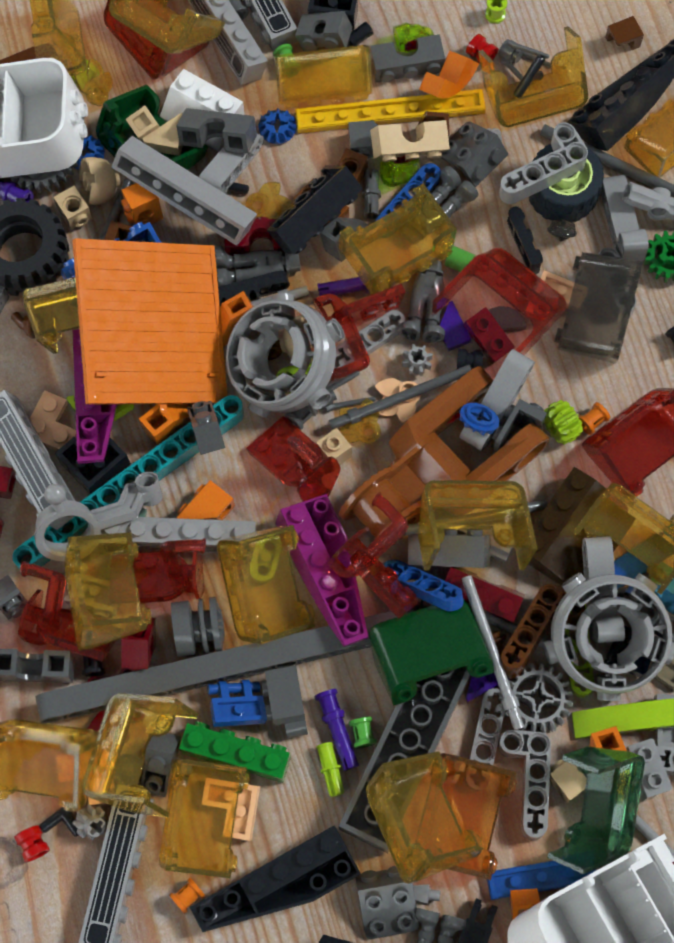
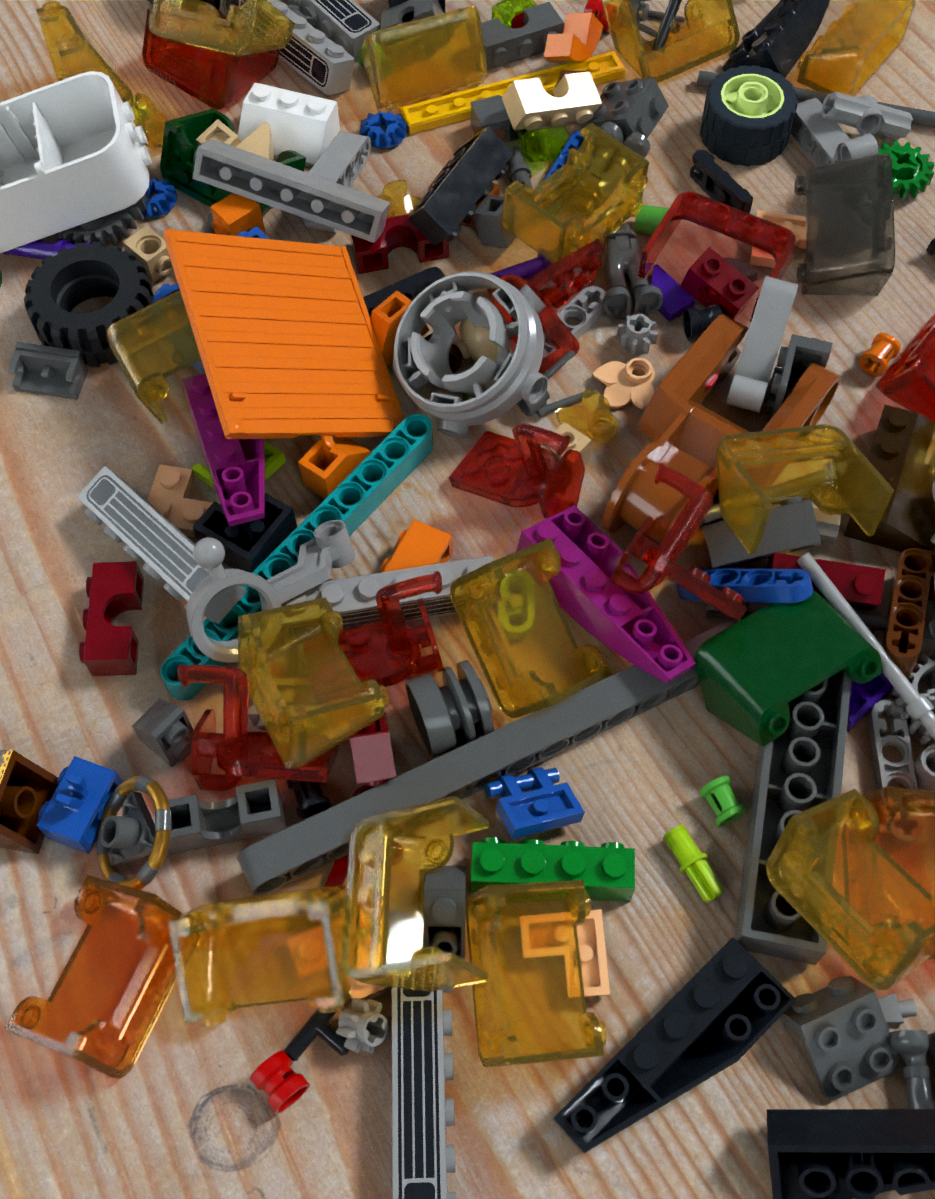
camera: 15 degrees left, 10 degrees down
(23, 324) = (120, 391): reddish brown plate -> none
(98, 180) = (174, 210): tan cylinder -> none
(187, 895) = (540, 1102): orange bush -> none
(201, 125) = (293, 131): dark grey arch -> none
(205, 427) = (393, 452): dark grey slope -> none
(262, 260) = (400, 267): dark grey piece -> none
(285, 700) = (602, 781): dark grey hinge -> none
(300, 416) = (508, 421): dark grey bush -> none
(334, 718) = (674, 789): dark purple pin -> none
(354, 415) = (581, 407): dark grey bar -> none
(471, 411) = (748, 368): blue gear -> none
(516, 185) = (744, 79): light grey beam -> none
(562, 229) = (761, 167): clear smoke hat -> none
(562, 422) = (850, 361): lime gear -> none

